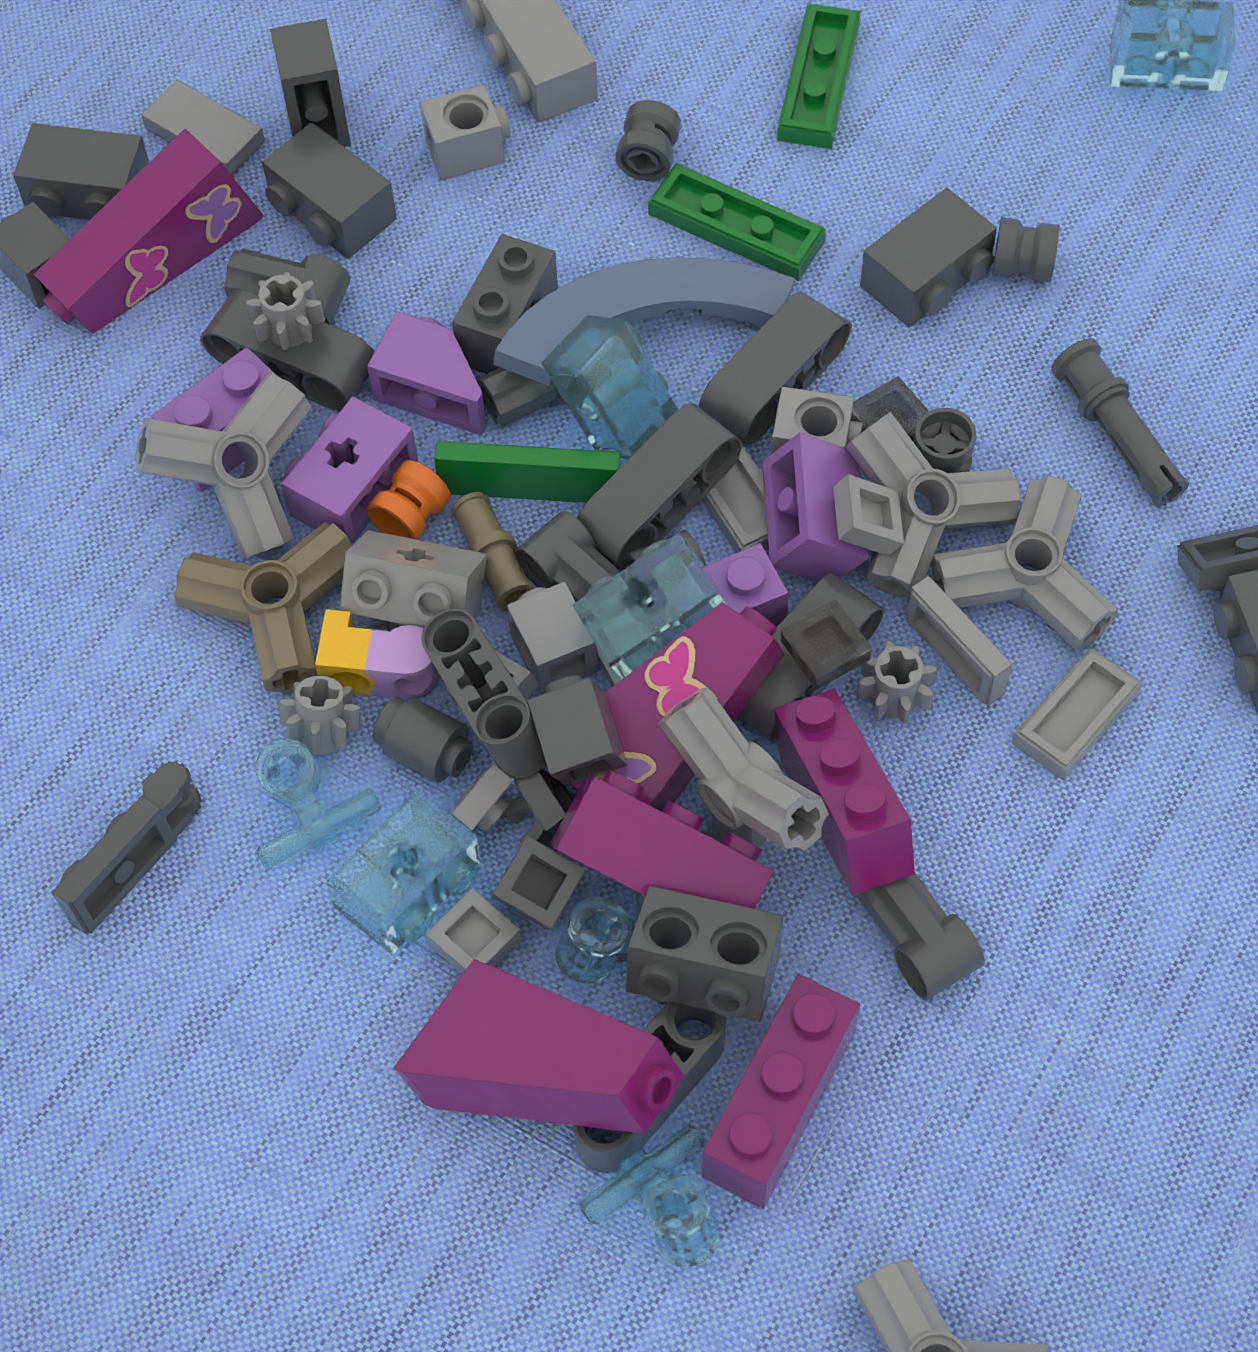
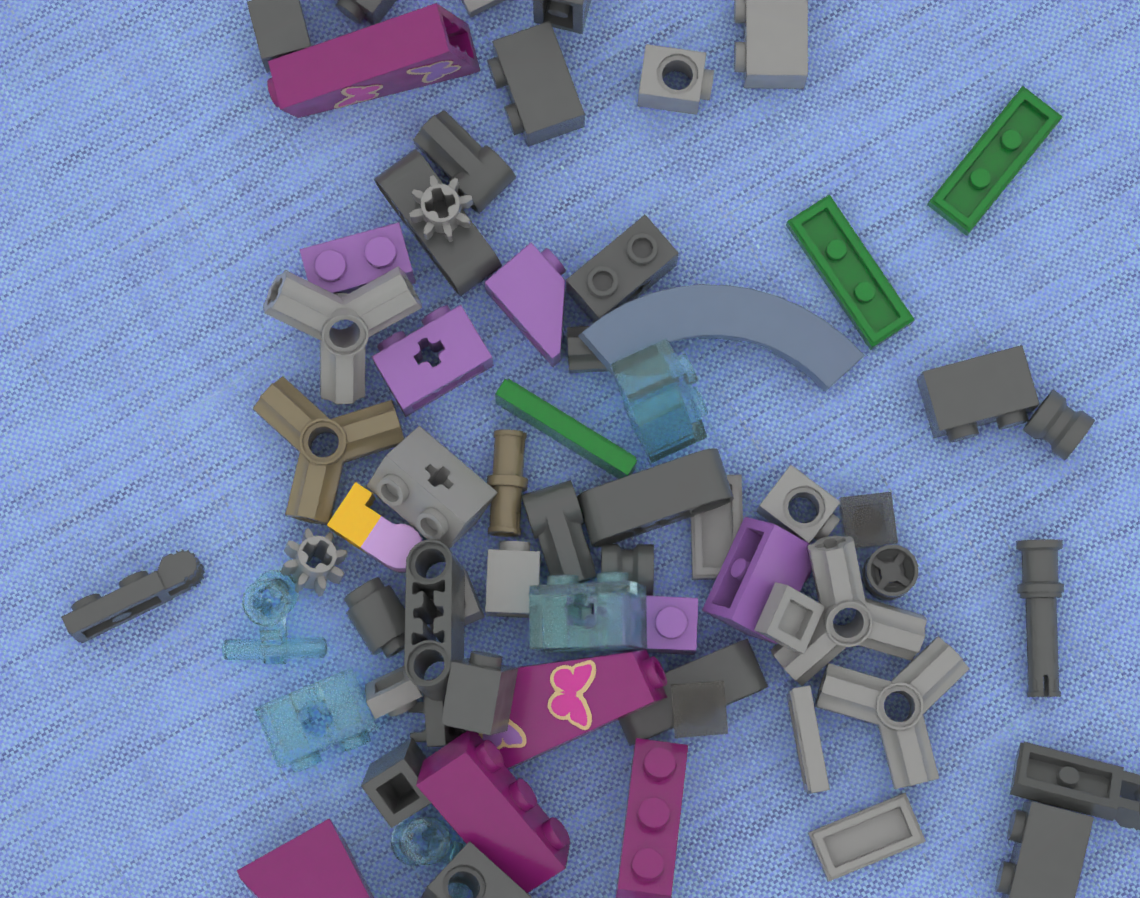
camera: 25 degrees right, 20 degrees up
(409, 501) = (473, 405): orange wheel -> none
(472, 932) = (340, 791): light grey plate -> none
(648, 140) = (816, 163): dark grey wheel -> none
(740, 779) = (575, 794): light grey piece -> none
(785, 352) = (803, 431): dark grey beam -> none
(897, 682) = (757, 743): light grey gear -> none

